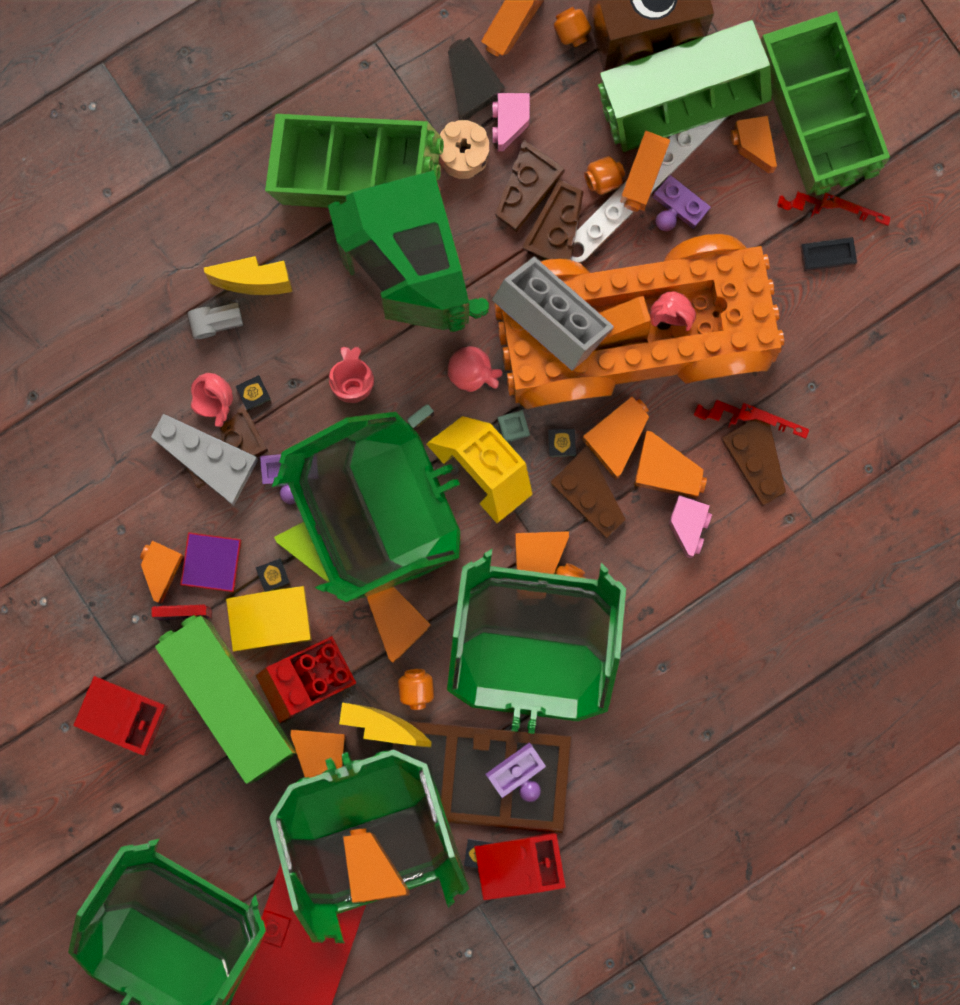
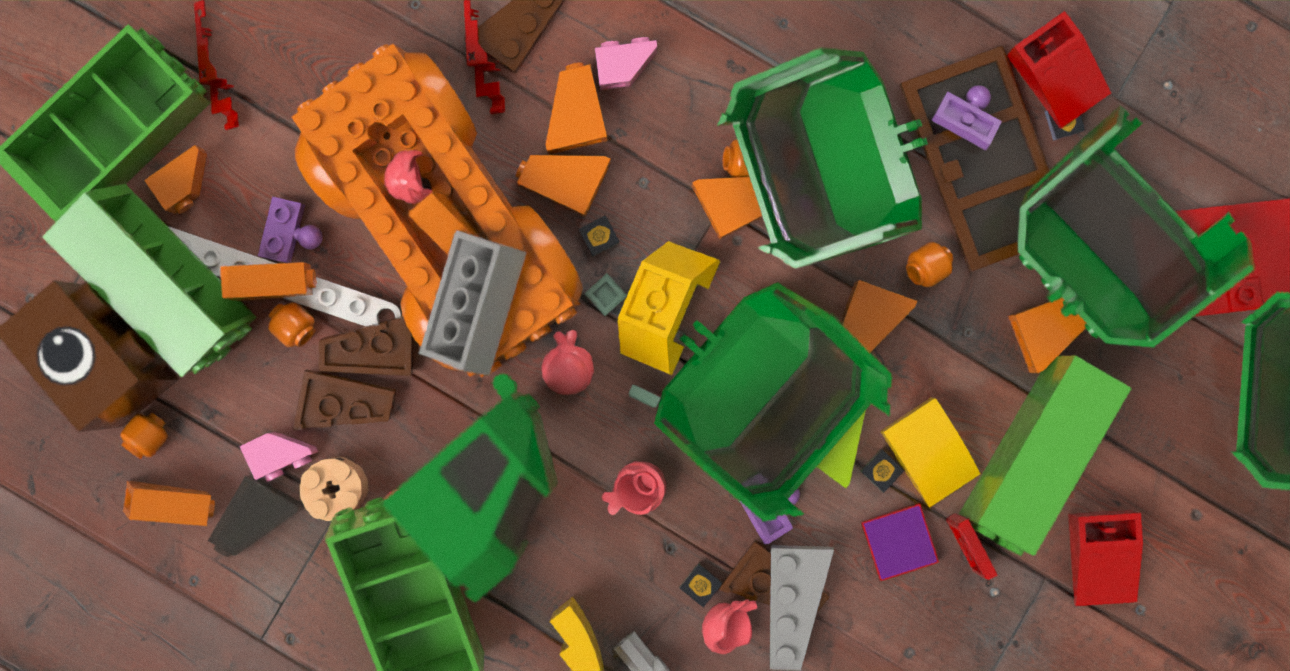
camera: 110 degrees left, 5 degrees up
(159, 568) = (933, 592): orange slope -> none
(305, 679) = (974, 383): red slope -> none
(370, 869) = (1144, 218): orange slope -> none
(382, 725) = (990, 277): yellow slope -> none
(589, 493) = (638, 183): reddish brown wing -> none
(828, 254) = (264, 50): black tile -> none

